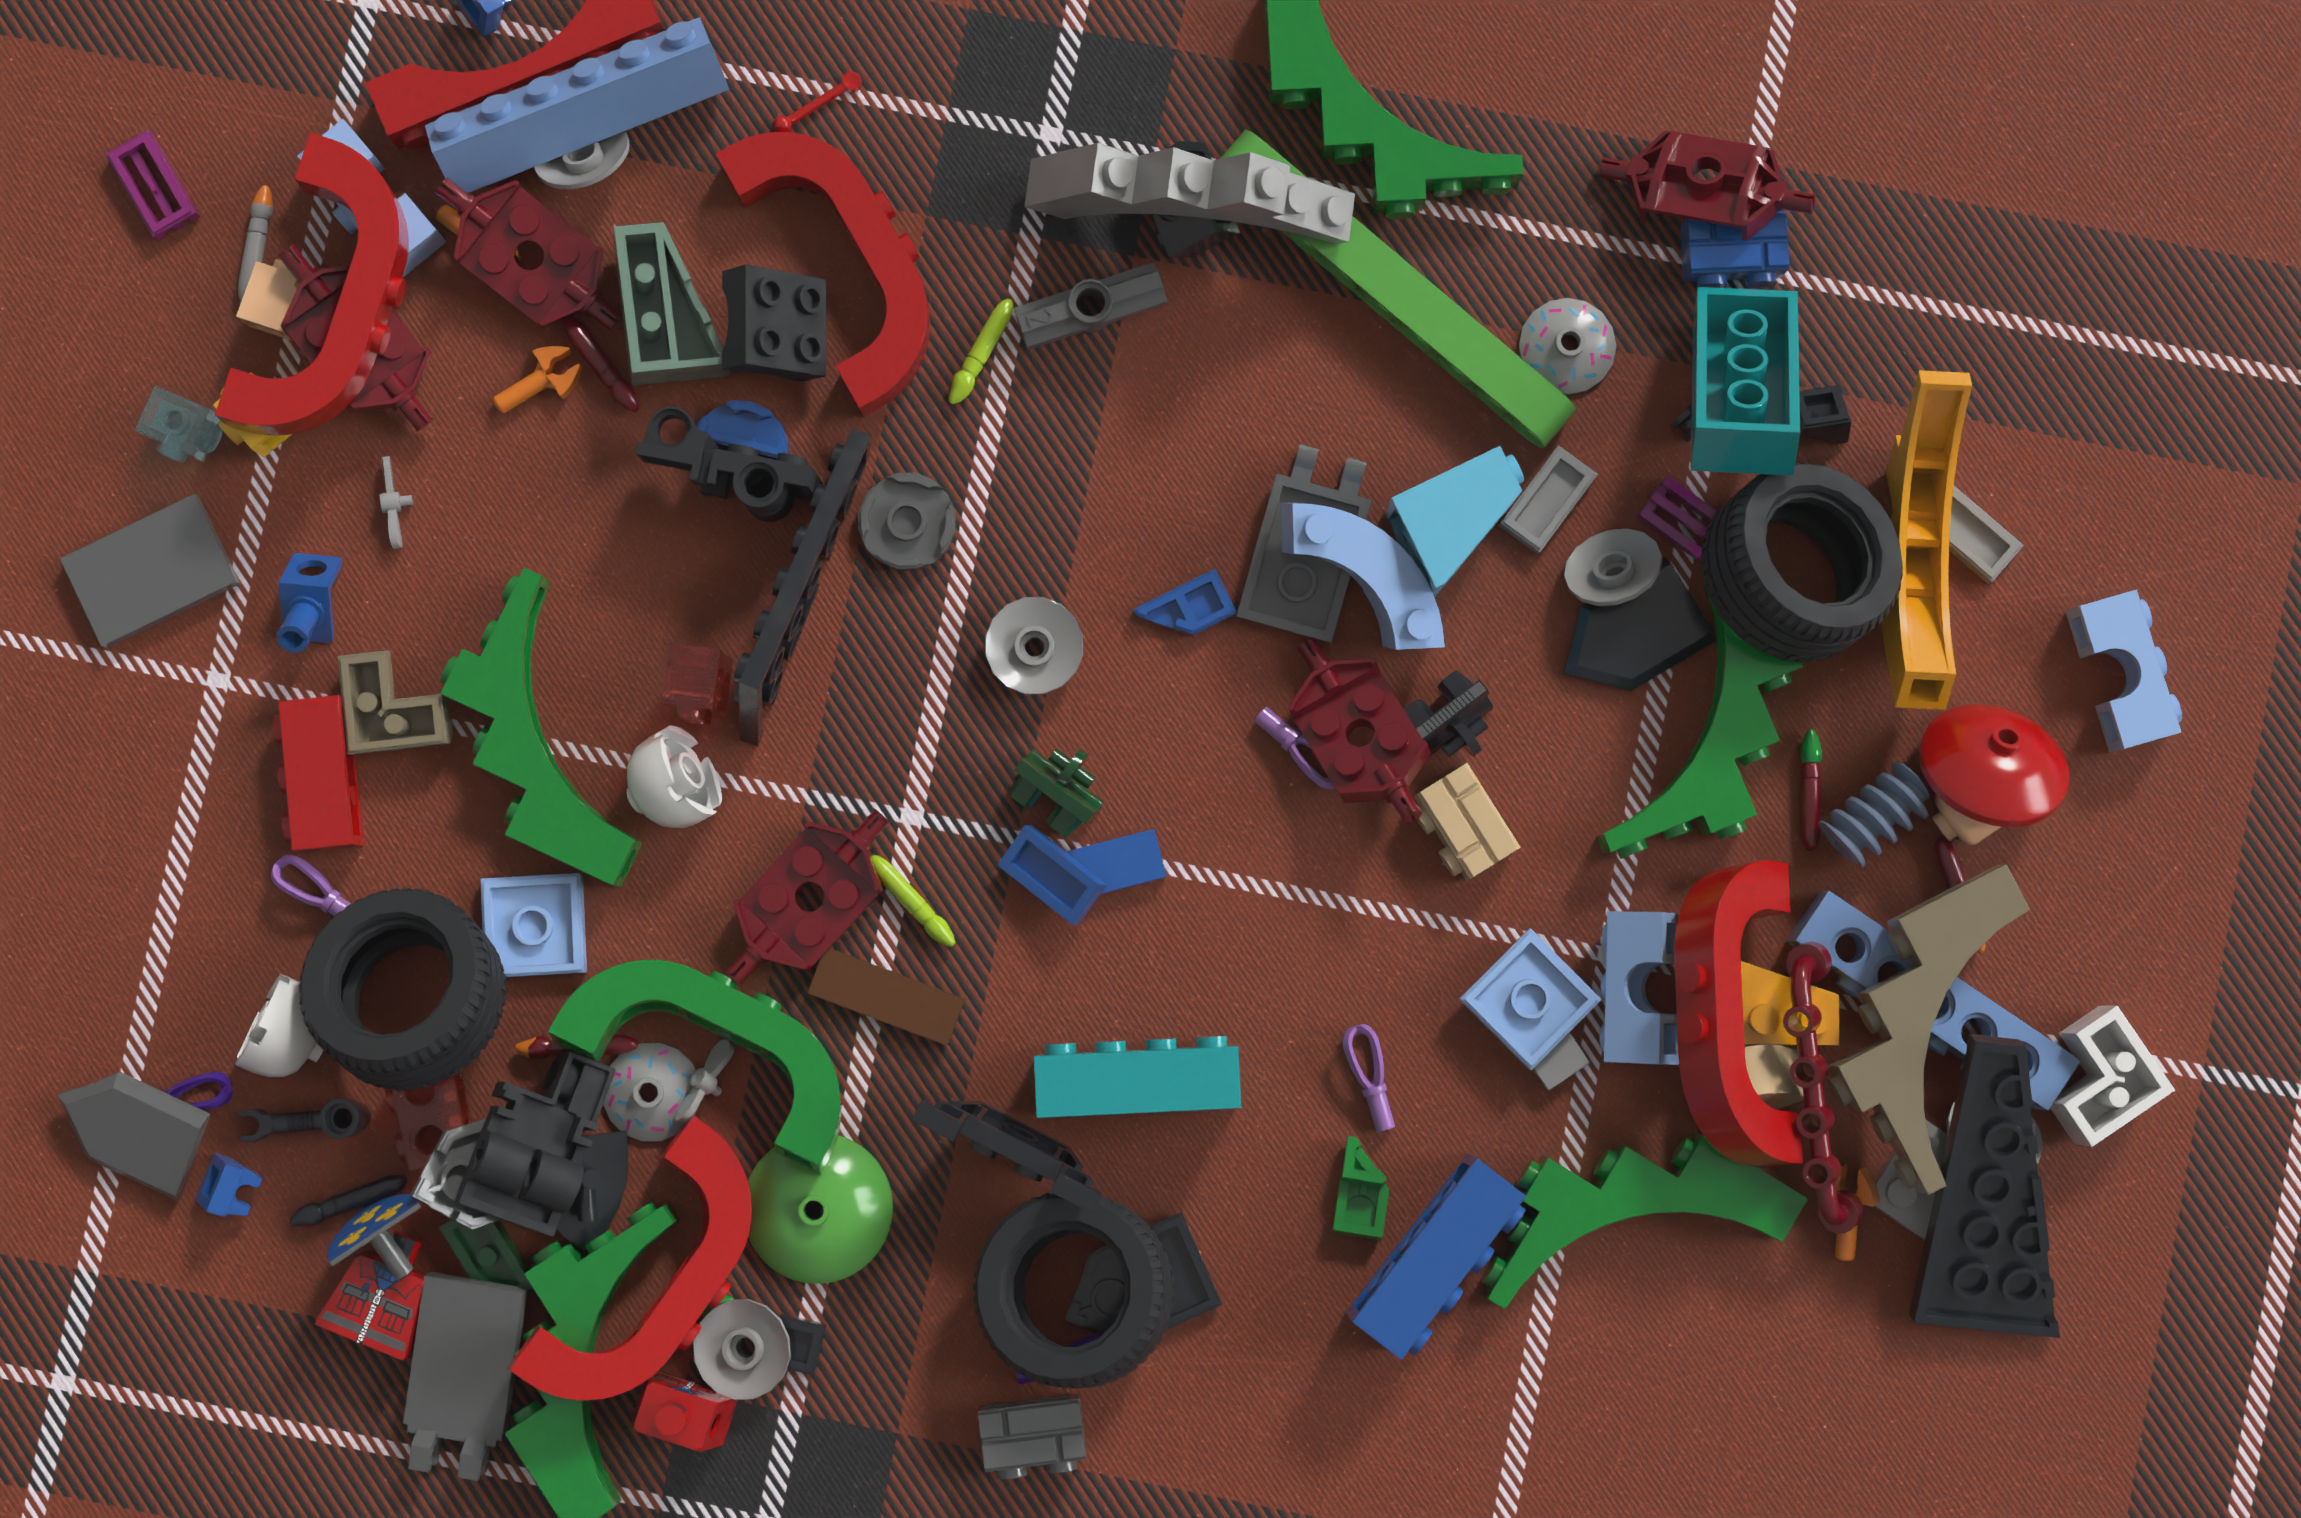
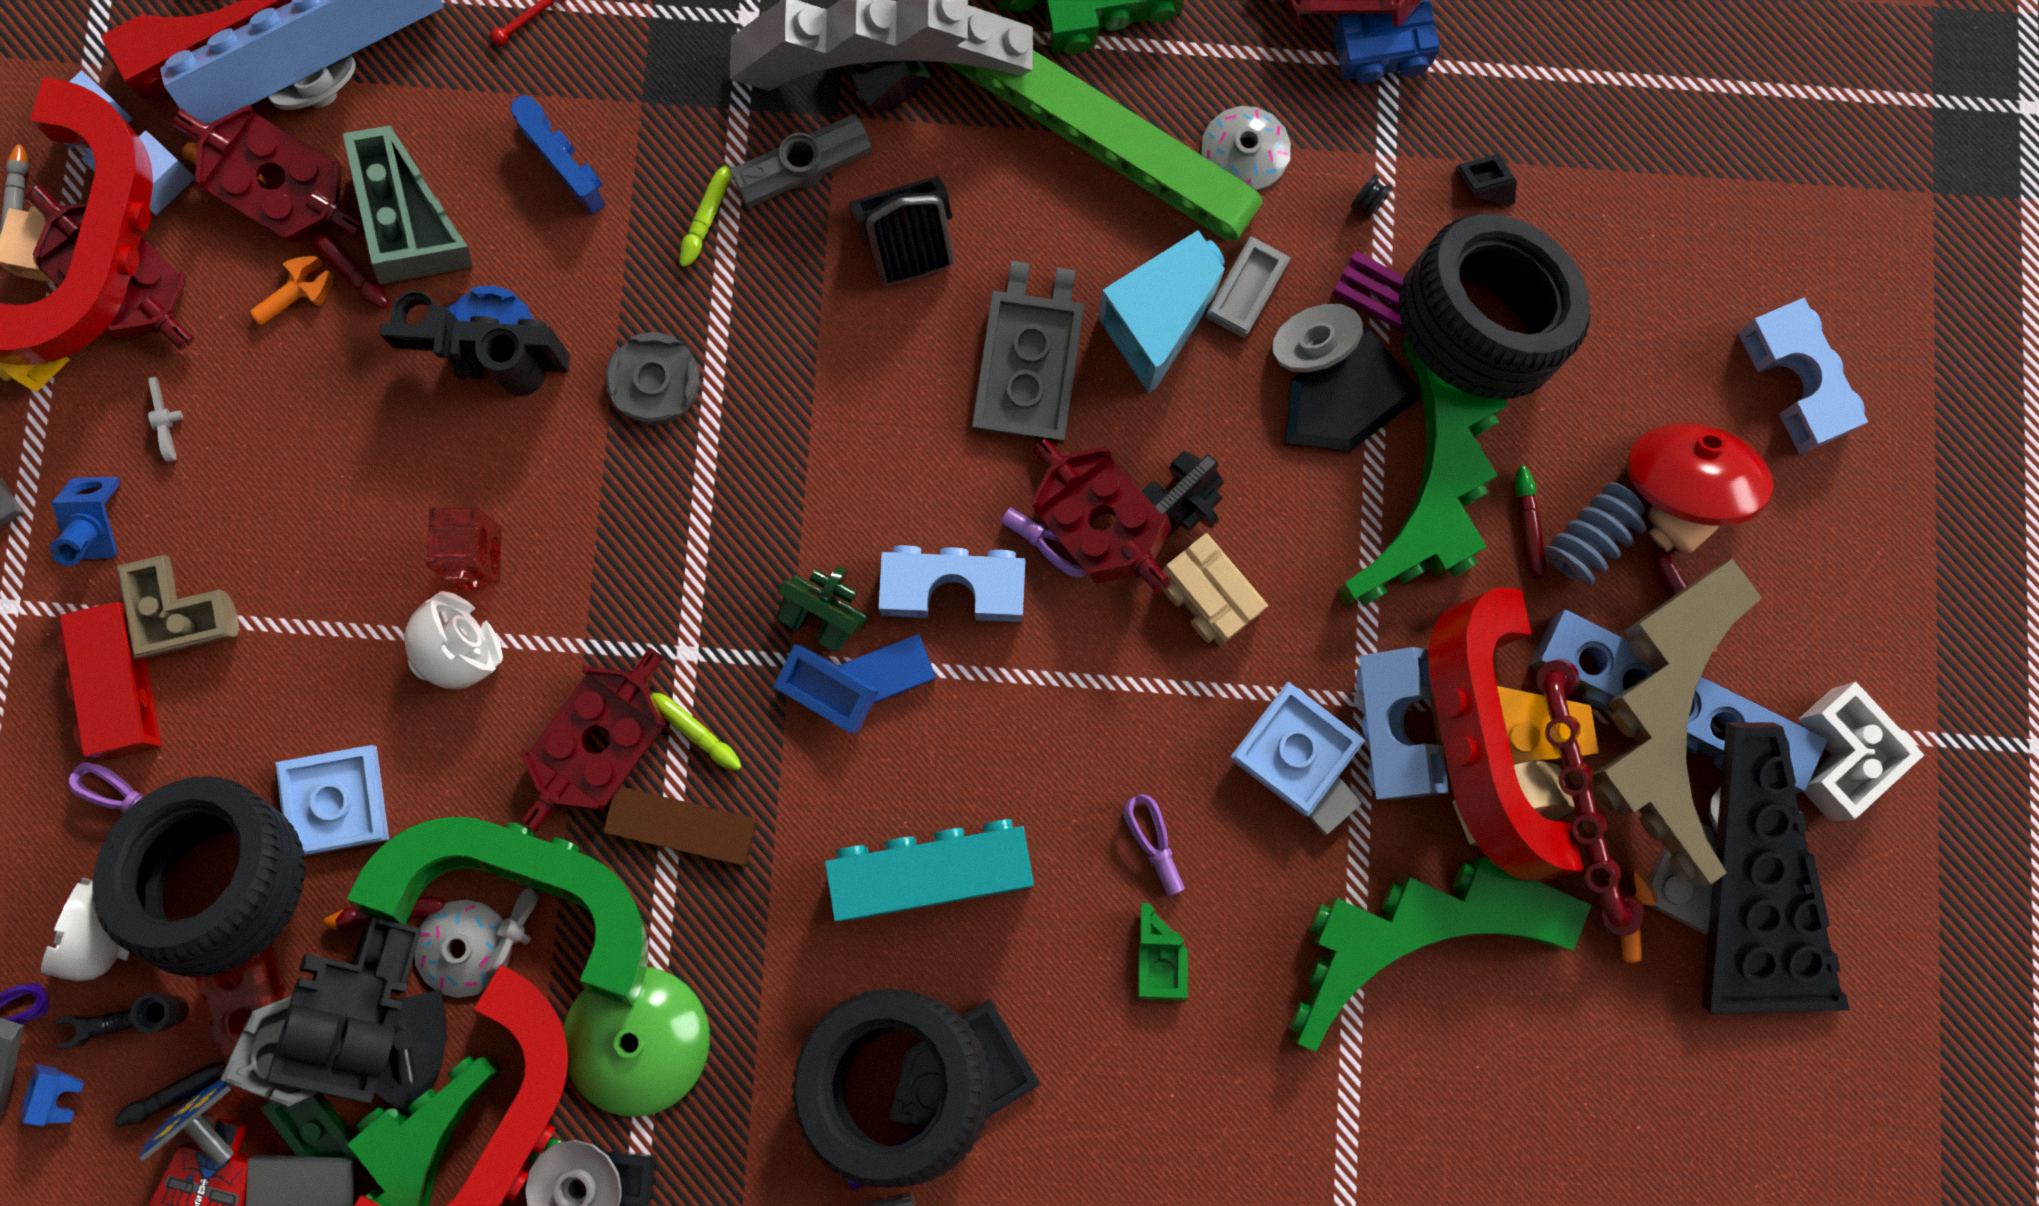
camera: 10 degrees left, 5 degrees down
(514, 748) = (296, 629): green arch -> none
(775, 323) = (505, 207): black brick -> none
(795, 160) = (516, 63): red arch -> none
(797, 587) = (541, 480): black wing -> none
(832, 264) = (557, 153): none -> blue hinge
(1029, 620) = (780, 454): light grey dish -> none
(1032, 1150) = (798, 943): black wing -> none
(1190, 606) = (927, 424): blue tile -> none
(1192, 395) = (906, 230): none -> black piece
(1239, 784) = (912, 577): none -> light blue arch
(1380, 565) = (1095, 356): light blue brick -> none
(1436, 1256) = (1243, 1008): blue brick -> none
(1745, 381) = (1417, 148): teal brick -> none
(1921, 498) = (1592, 233): light orange arch -> none
(1979, 539) = (1638, 270): light grey tile -> none

